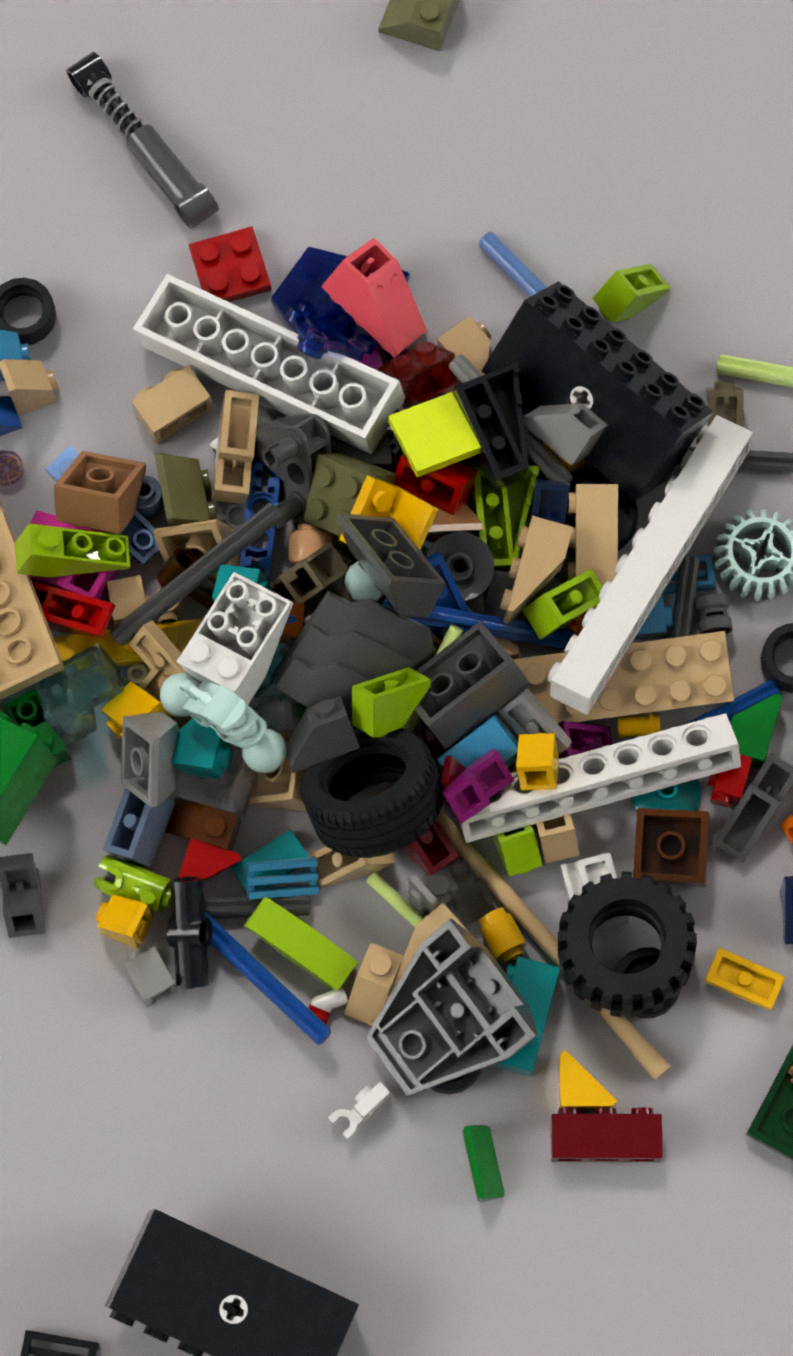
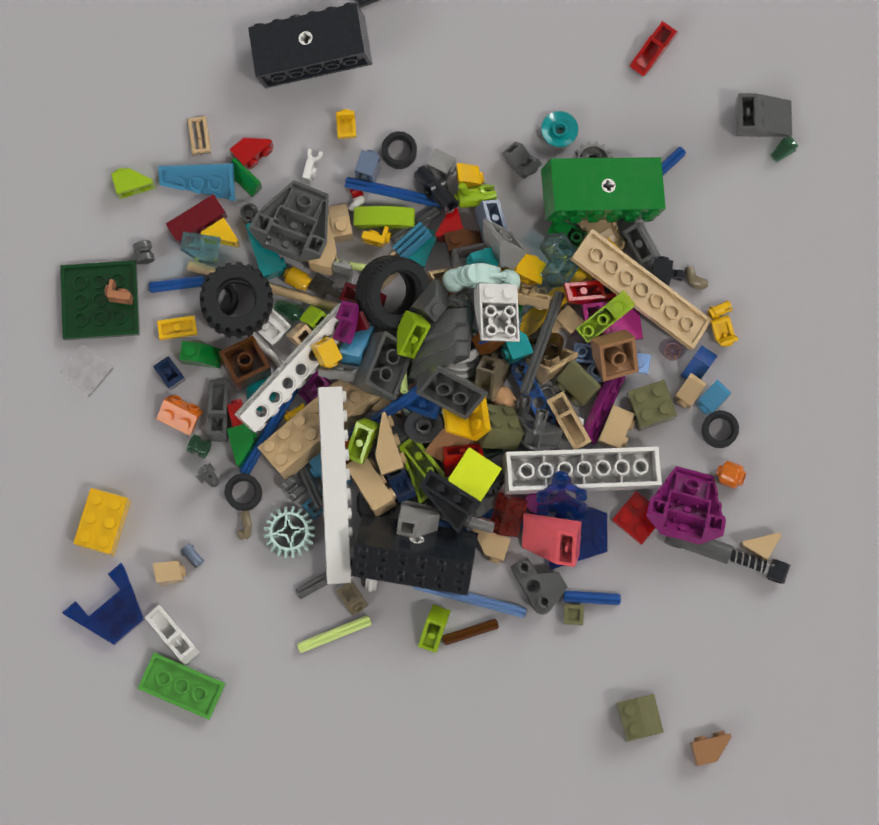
camera: 145 degrees right, 5 degrees up
(55, 239) = (731, 474): none -> orange head
(82, 120) = (762, 546): none -> tan slope
(96, 403) = (651, 405): none -> olive brick
(149, 222) = (688, 507): none -> magenta wedge
(183, 440) = (602, 407): none -> magenta plate
(198, 1017) = (399, 164): none -> black tyre
(259, 1142) = (346, 124): none -> yellow bracket
(273, 1038) = (368, 166): none -> sand blue brick
(339, 923) = (373, 238): none -> yellow bracket
(375, 200) = (592, 597): none -> blue axle
(417, 192) = (573, 614): none -> olive plate
(430, 246) = (548, 586): none -> dark grey piece
(445, 1200) = (251, 150): none -> red slope
(514, 1085) = (248, 210): none -> dark grey wheel
(524, 1258) = (201, 150): none -> tan tile
(546, 1199) = (200, 179): none -> dark azure wing
(547, 894) = (290, 310): none -> clear green cone
(577, 258) = (471, 631): none -> reddish brown axle
(618, 840) = (267, 350): none -> white bar
(627, 1078) = (201, 247): none -> clear light blue slope
(677, 1275) = (129, 182): none -> lime slope
(702, 1054) = (176, 284): none -> blue axle
(725, 1139) = (143, 252): none -> dark grey wheel
(733, 910) = (199, 354): none -> green slope

